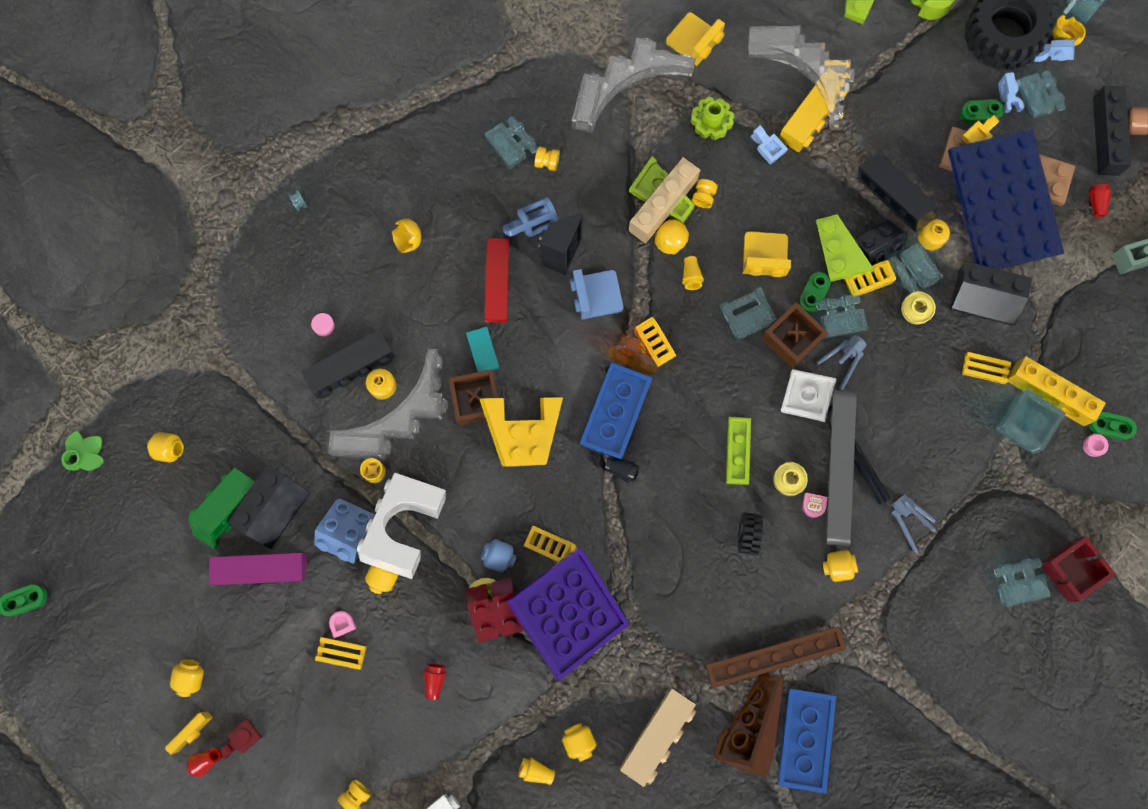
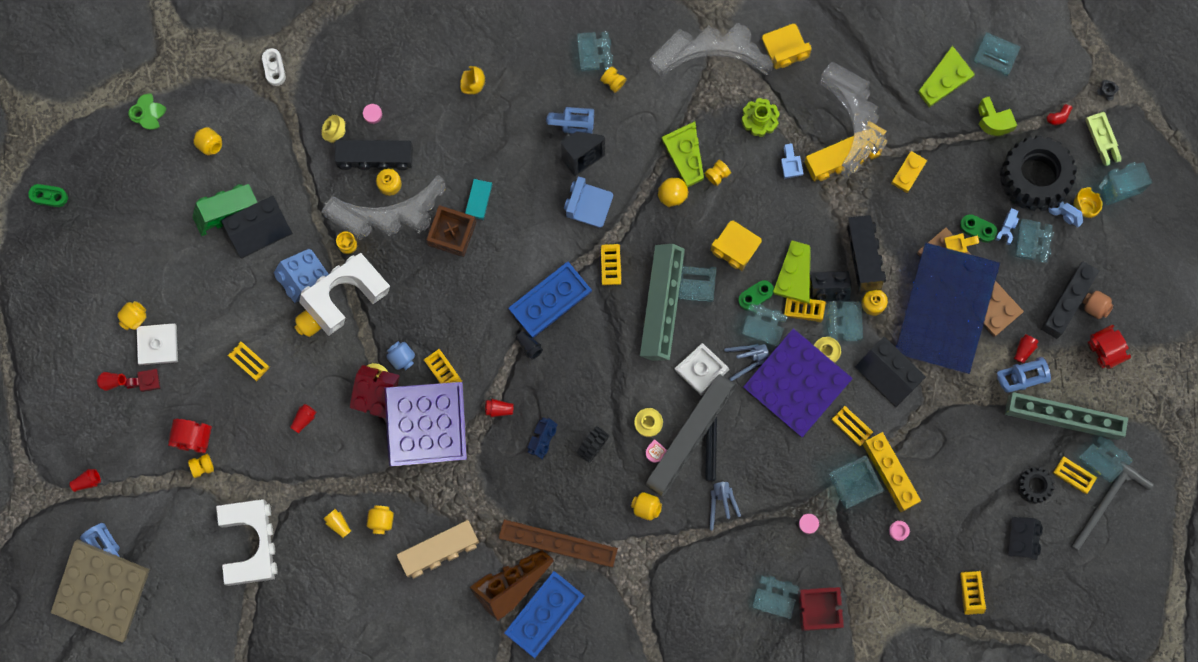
camera: 30 degrees right, 0 degrees up
(189, 733) = (112, 355): yellow plate -> none
(193, 333) = (273, 68): none -> white plate
(231, 692) = (157, 344): none -> white plate
(257, 568) = (224, 266): magenta brick -> none
(291, 361) = (333, 128): none -> light yellow plate
(297, 200) = (407, 9): clear light blue bush -> none
(323, 773) = (189, 435): none -> red brick
(341, 623) = (261, 340): bright pink tile -> none
(497, 280) = (520, 152): red slope -> none
(522, 441) = (466, 281): yellow wing -> none
(629, 552) = (498, 408): none -> red cone
(634, 354) = (588, 263): clear orange piece -> none
(664, 200) = (680, 160): tan brick -> none
(692, 275) = (670, 229): yellow cone -> none
(694, 565) = (546, 429): none -> dark blue hinge
(730, 350) = (662, 302): none -> sand green brick
(738, 450) = (624, 380): lime tile -> none
(794, 335) = (717, 318): reddish brown brick -> none
(884, 94) = (909, 172): none -> yellow plate
(911, 354) = (798, 382): none -> dark purple plate
(1006, 489) = (808, 523): none -> bright pink tile
(1110, 426) = (920, 523): green plate -> none
(1114, 228) = (1019, 378): none -> medium blue piece

